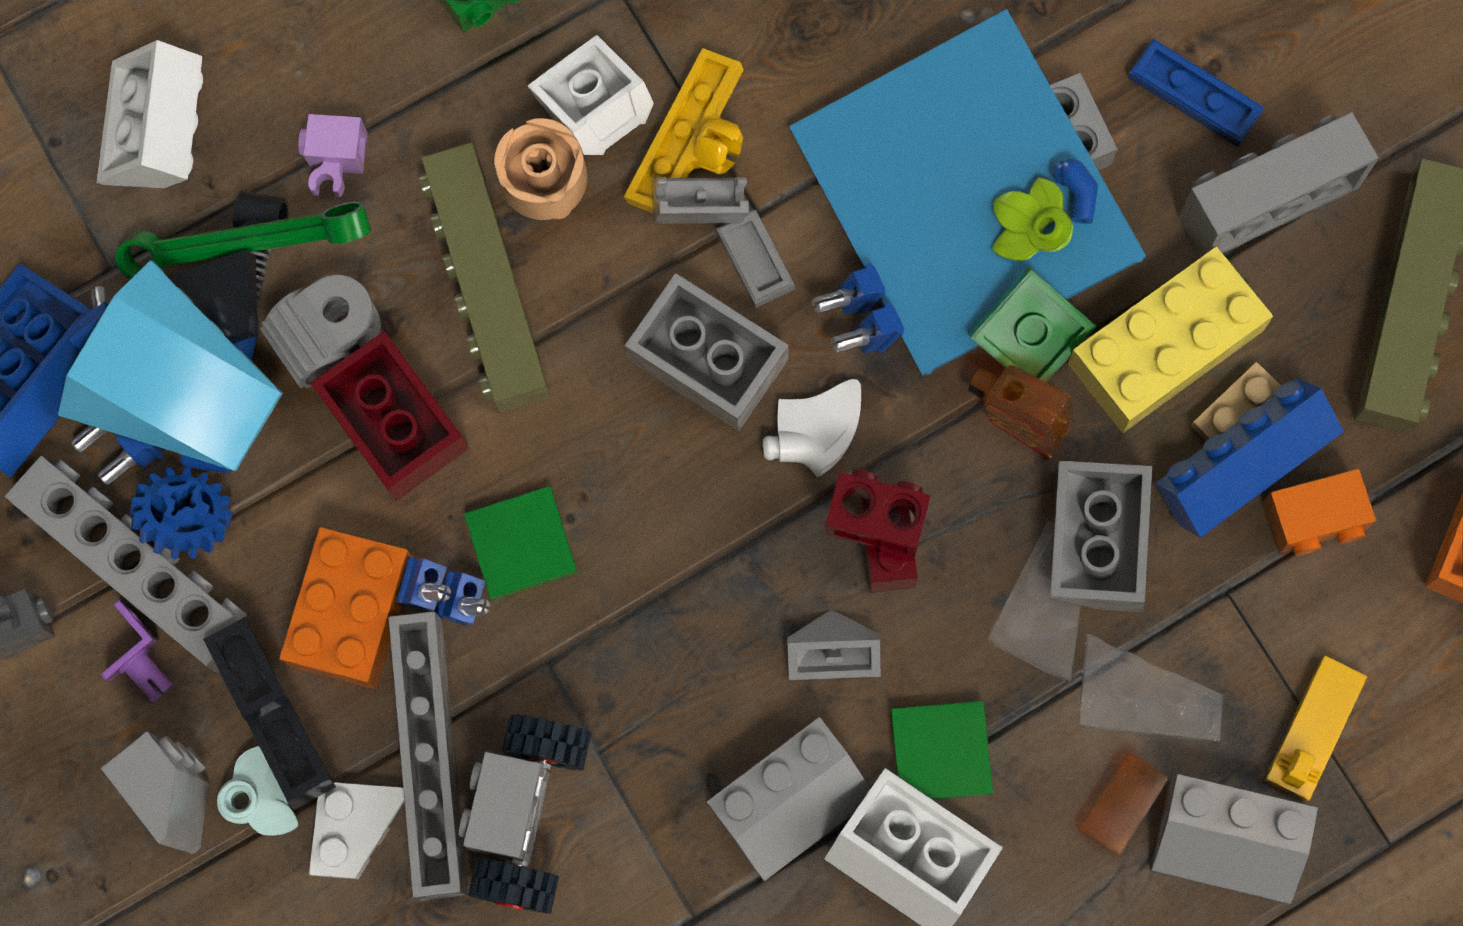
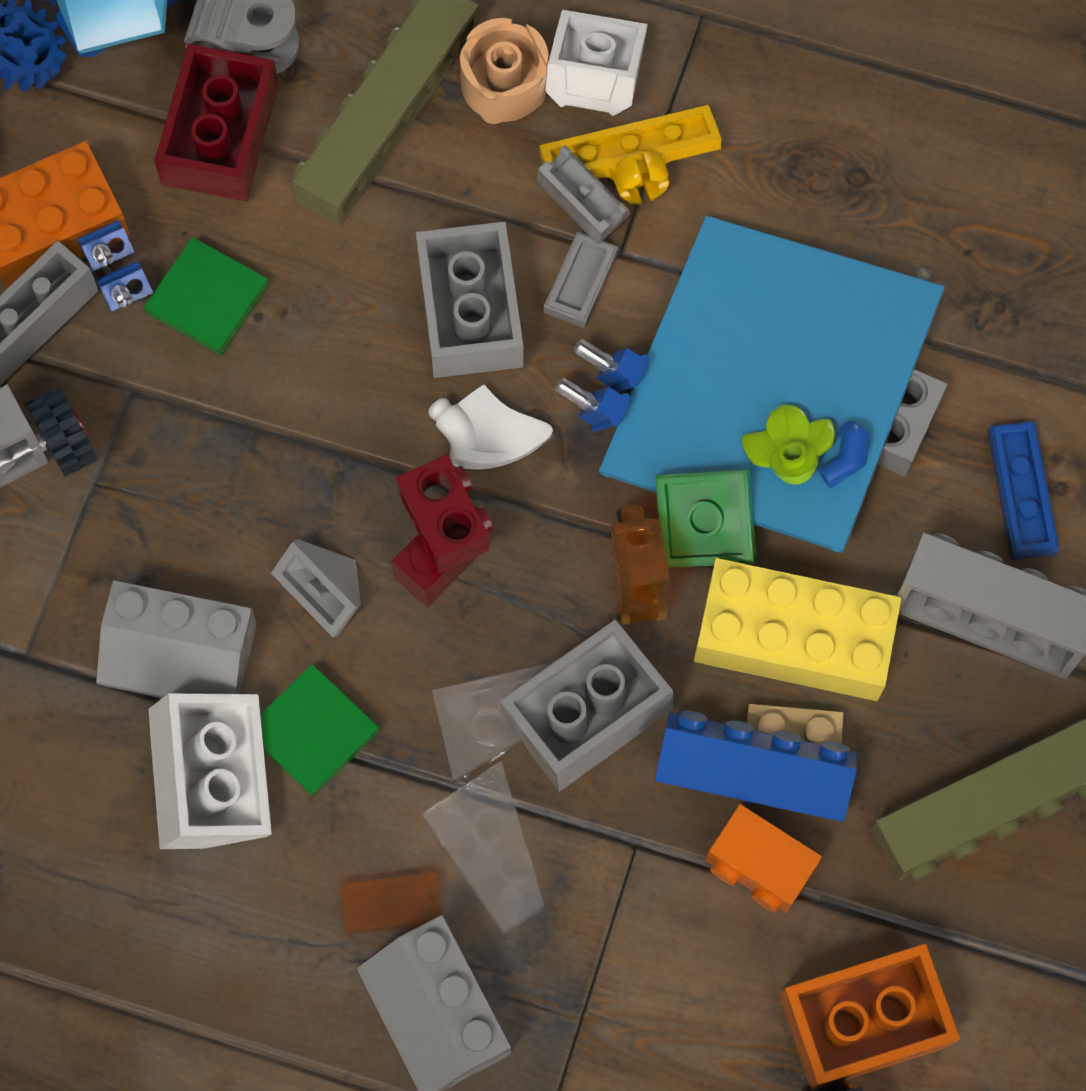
camera: 40 degrees right, 5 degrees down
(1315, 728) = (584, 1003): yellow hinge -> none

